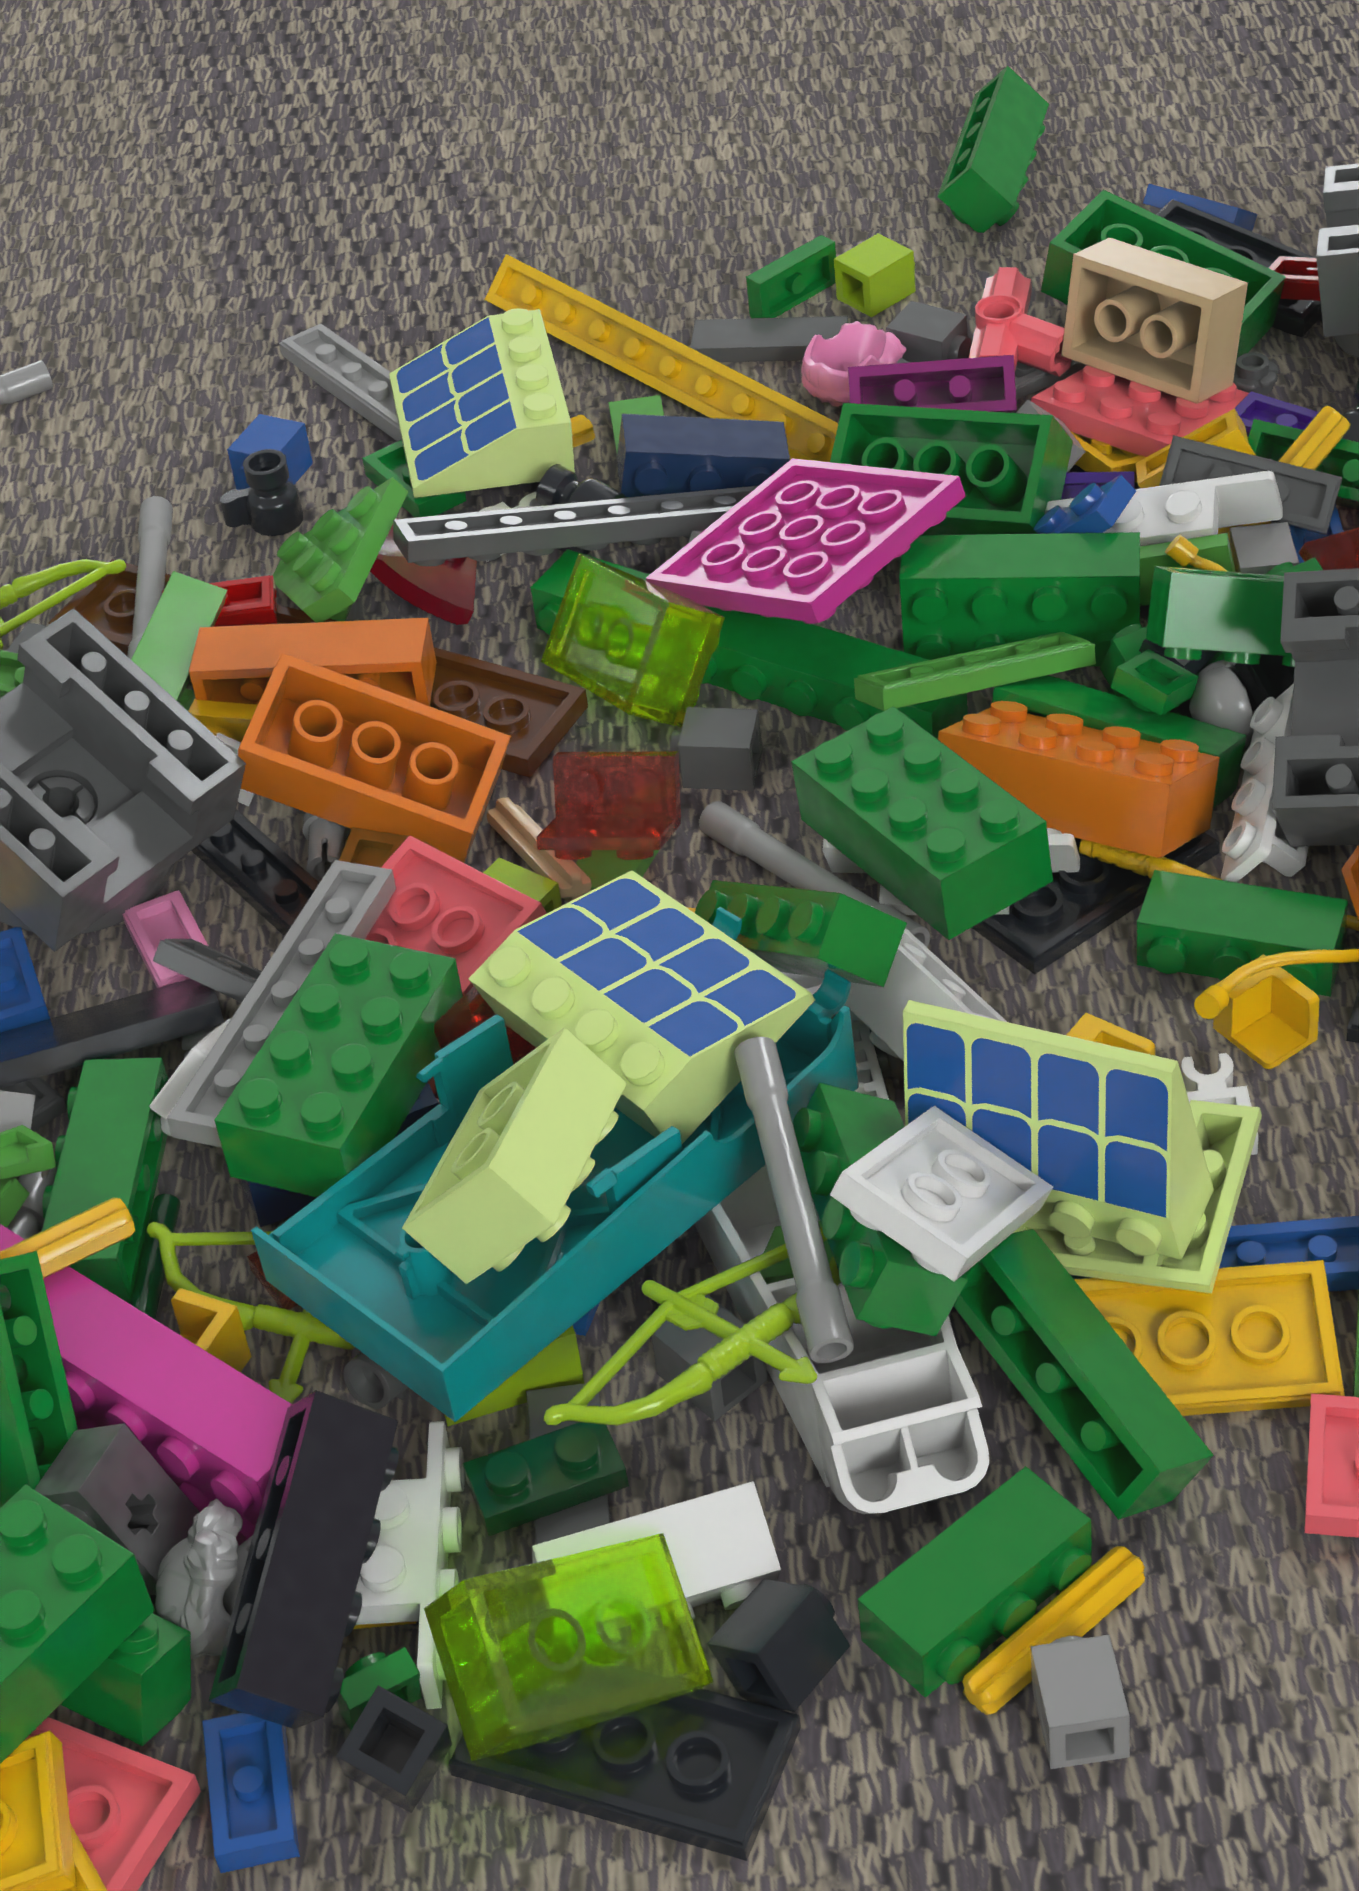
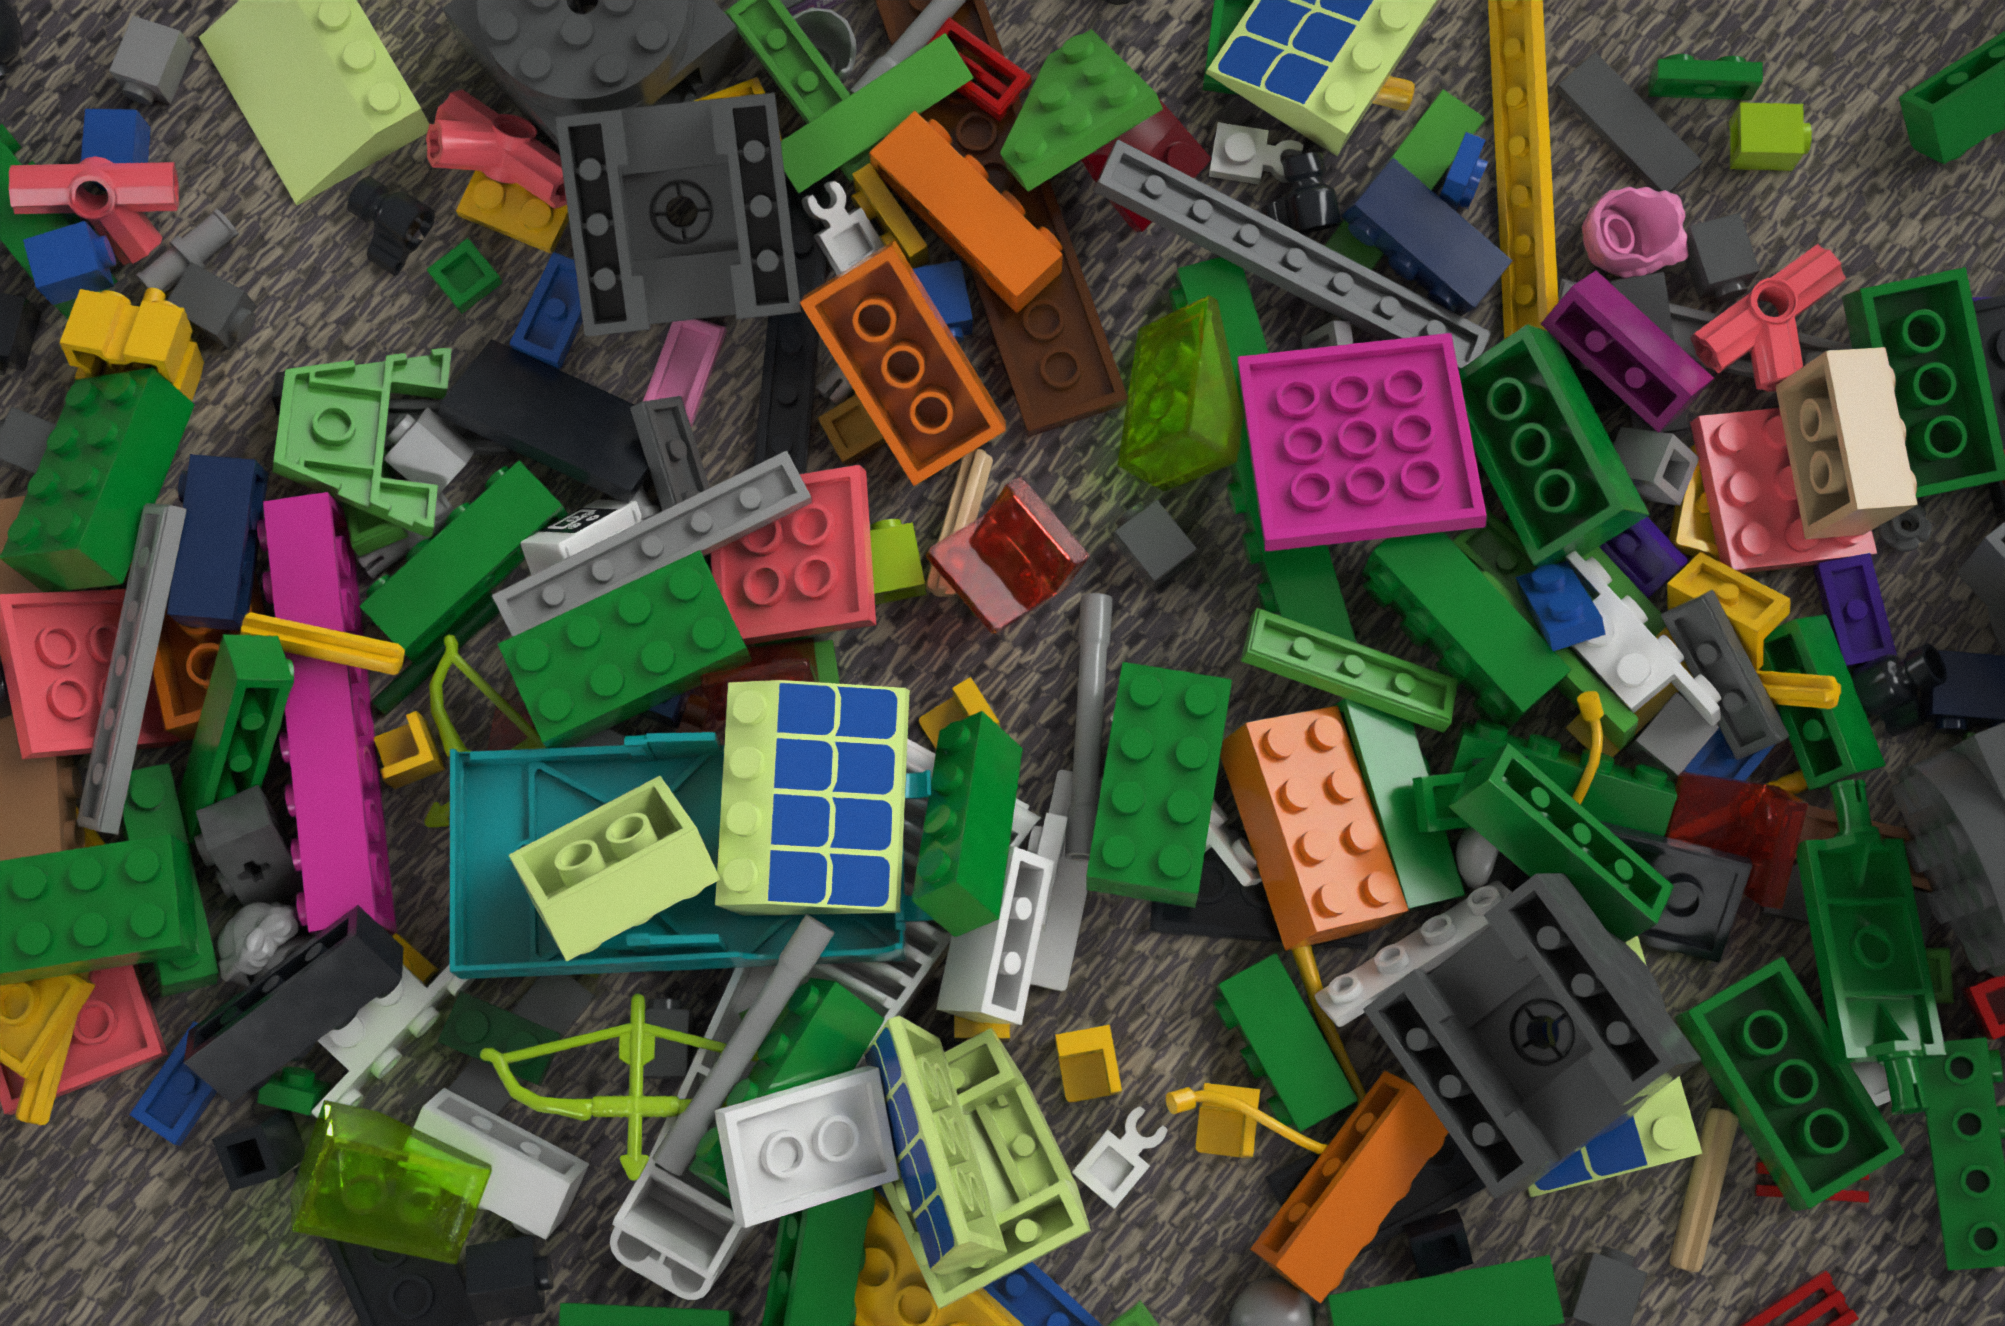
camera: 40 degrees right, 35 degrees up
(682, 386) = (1464, 173): none -> blue plate

